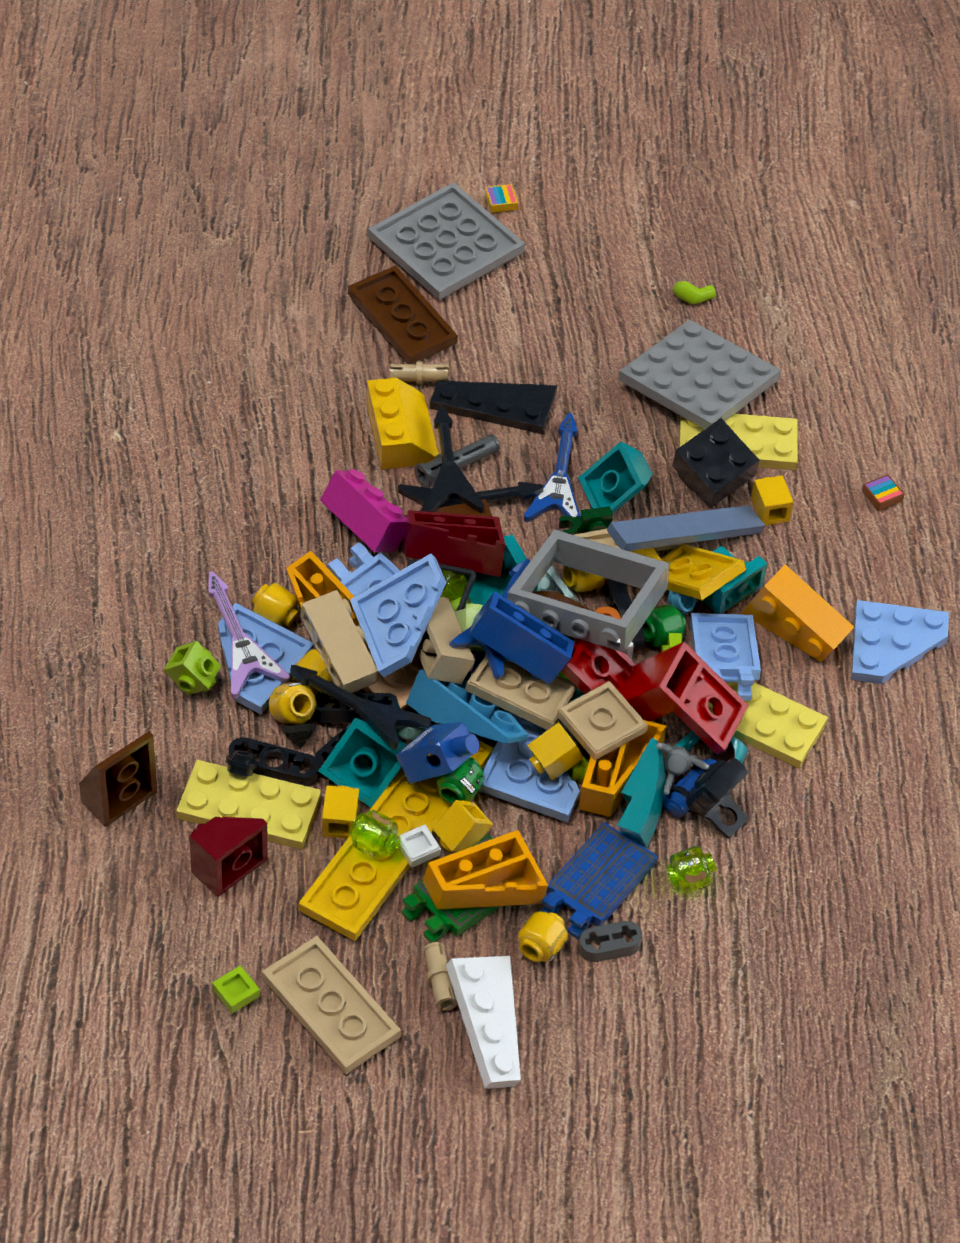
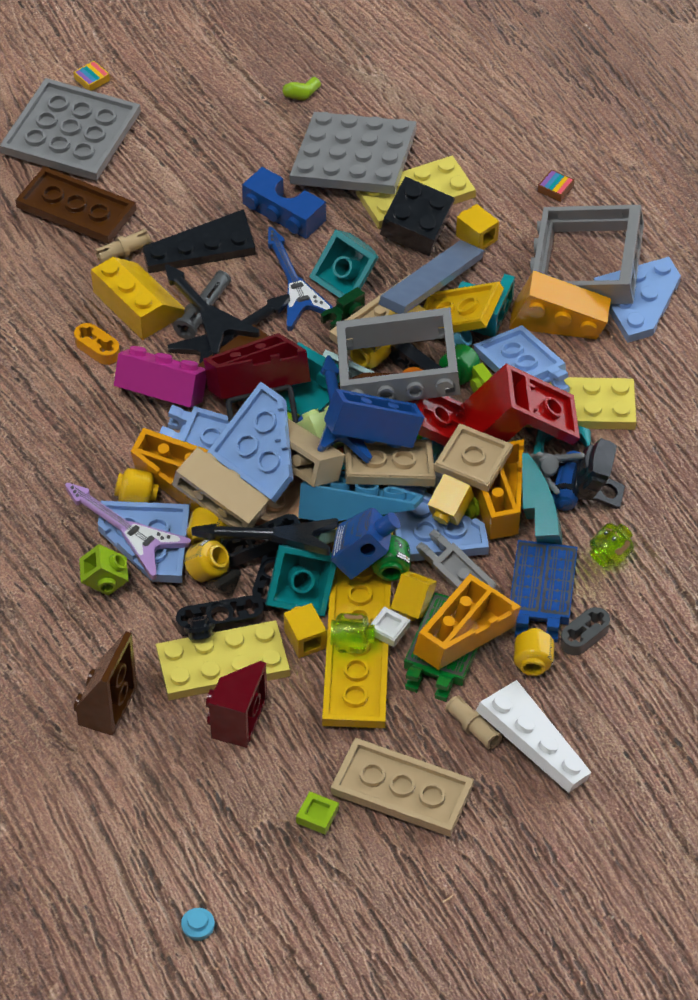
camera: 25 degrees left, 0 degrees up
(59, 1037) = (197, 924): none -> medium azure plate
(329, 455) = (99, 341): none -> light orange beam
(522, 816) = (453, 562): none -> light grey hinge
(606, 413) = (266, 195): none -> blue arch
(923, 554) = (595, 219): none -> light grey window

